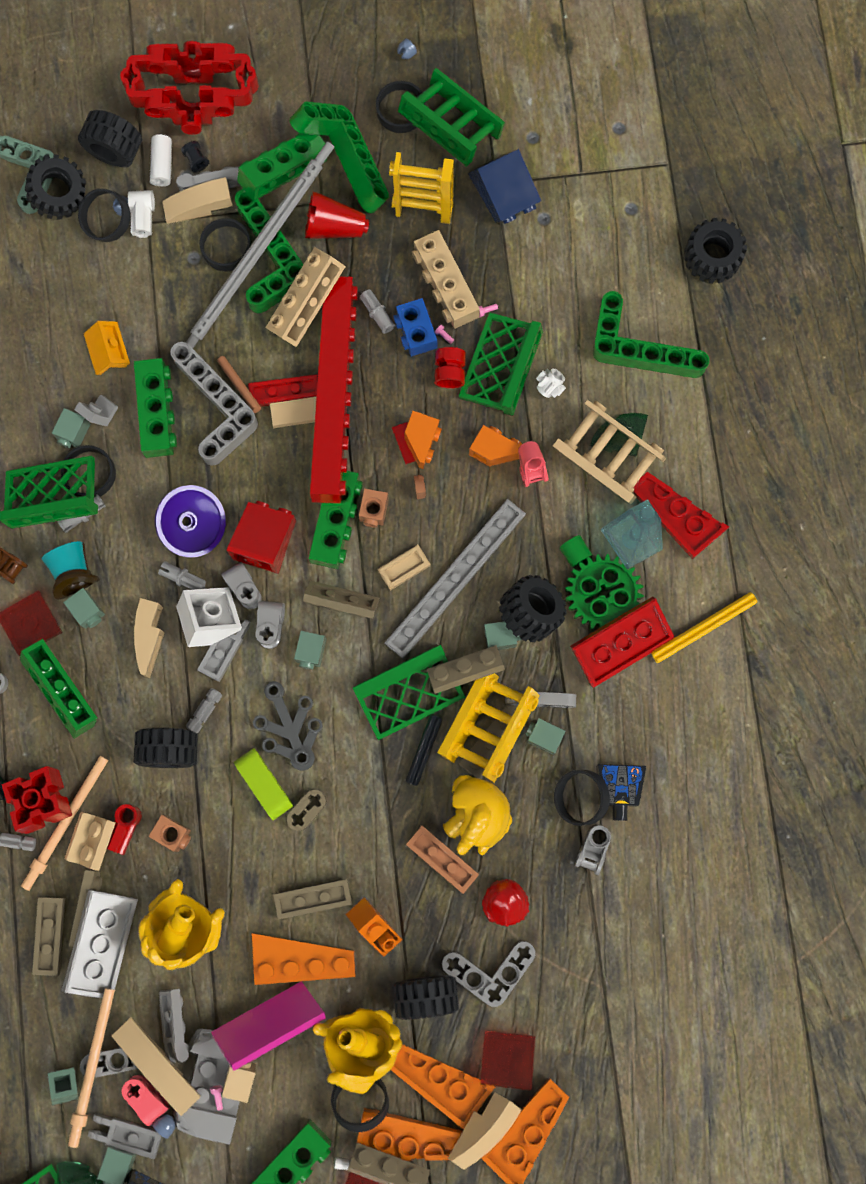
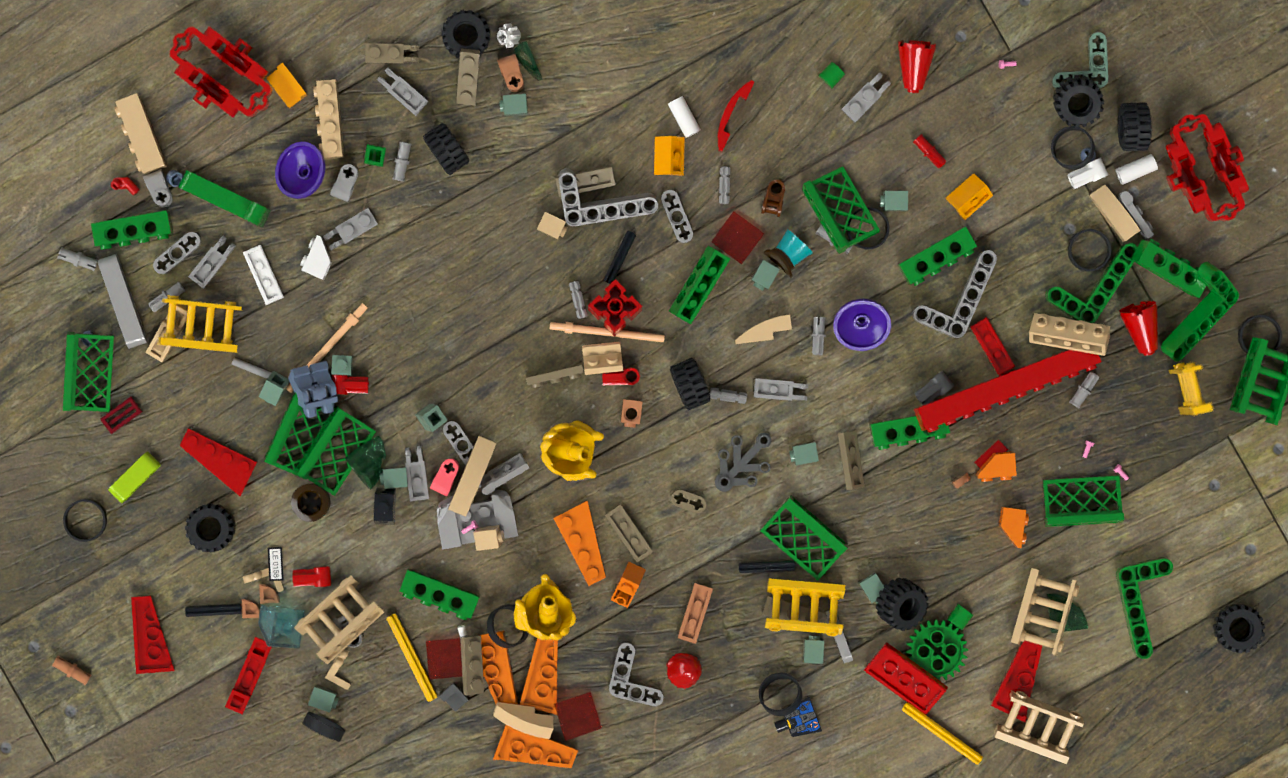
camera: 70 degrees right, 10 degrees up
(35, 370) = (929, 151): none -> red axle
(48, 936) = (524, 358): dark tan plate -> none
(80, 1117) = (414, 438): light nougat bar -> none
(99, 412) = (916, 216): light grey bracket -> none
(99, 944) = (535, 398): tile -> none
(164, 1125) = (435, 499): sand blue hinge -> none
(195, 157) = (1151, 194): black bush -> none
(207, 615) = (797, 369): white slope -> none
(238, 383) = (982, 311): nougat bar -> none
(241, 583) = (832, 380): light grey piece -> none
(258, 246) = (1160, 296): light grey axle -> none
(262, 536) = (874, 382): red slope -> none
(263, 784) = (694, 462): lime beam -> none
(267, 1025) = (532, 542): dark pink tile -> none
(269, 619) = (815, 414): light grey piece -> none
(293, 412) = (979, 362): tan tile -> none
(300, 468) = (937, 386): none -> dark grey piece
(369, 498) = (937, 451): nougat brick -> none
(404, 567) = (895, 495): tan tile -> none
(420, 326) = (1086, 430): blue brick -> none
(425, 997) = (597, 642): black tyre -> none
(446, 279) = (1131, 432): tan brick -> none
(450, 364) = (1061, 465): red wheel -> none
(455, 579) = (902, 536): light grey tile -> none
(465, 669) = (837, 574): dark tan plate -> none
(480, 814) = (737, 627): yellow piece -> none
(506, 187) = (1225, 446): dark blue slope -> none
(532, 463) = (1011, 558): coral piece -> none
(550, 383) = (1081, 546): white gear -> none
(593, 851) = (746, 717): light grey piece -> none
(635, 534) = (989, 656): clear light blue slope -> none
(763, 518) = (1040, 745): none -> tan fence

